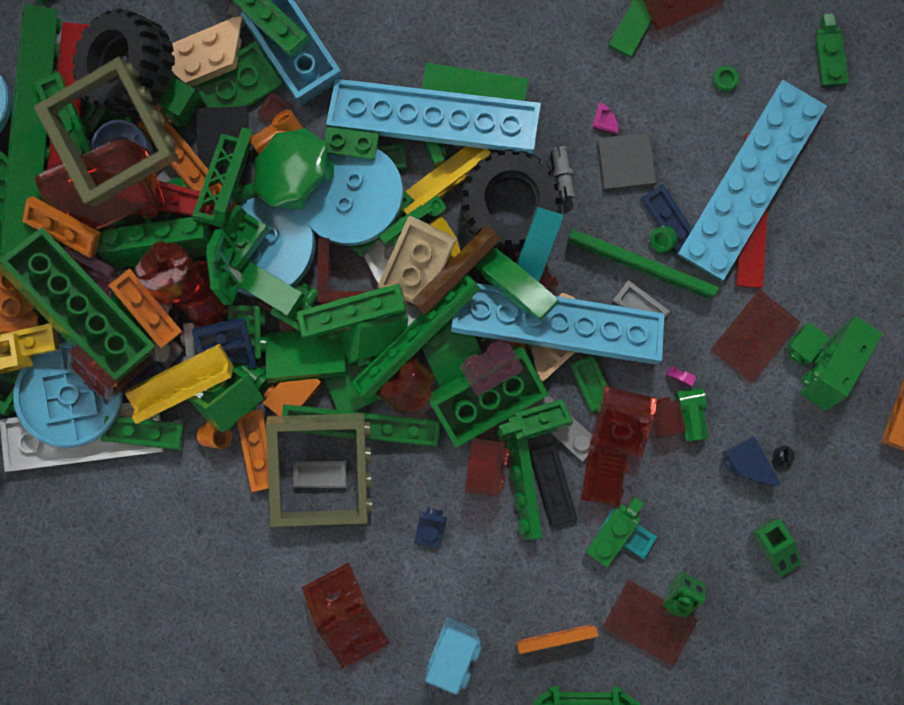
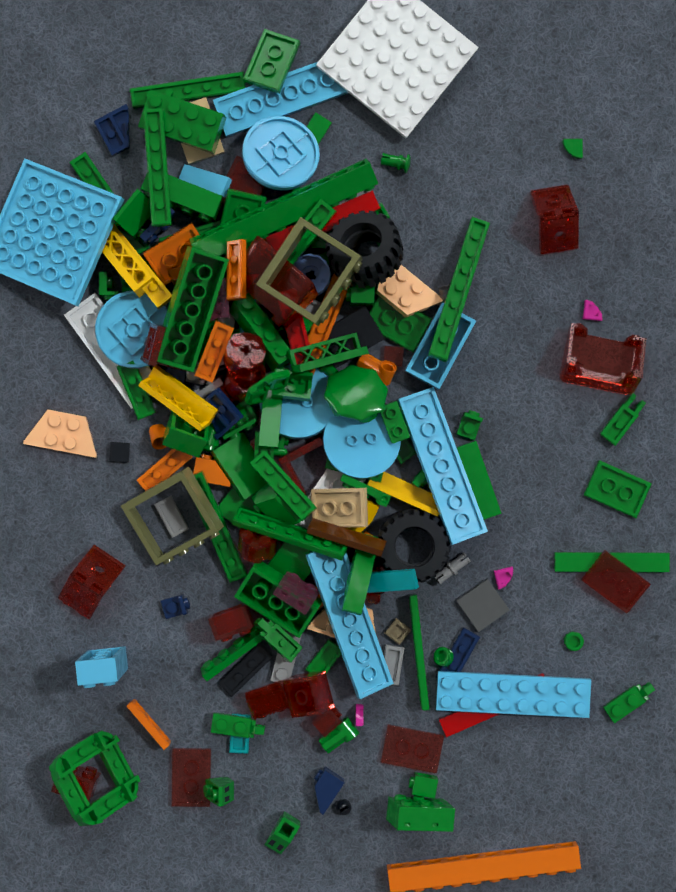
camera: 65 degrees right, 5 degrees up
(146, 552) = (63, 433): none -> light nougat wing
(207, 494) = (119, 451): none -> black tile
(404, 63) = (469, 425): none -> green bracket
(604, 277) = (397, 631): none -> dark tan tile

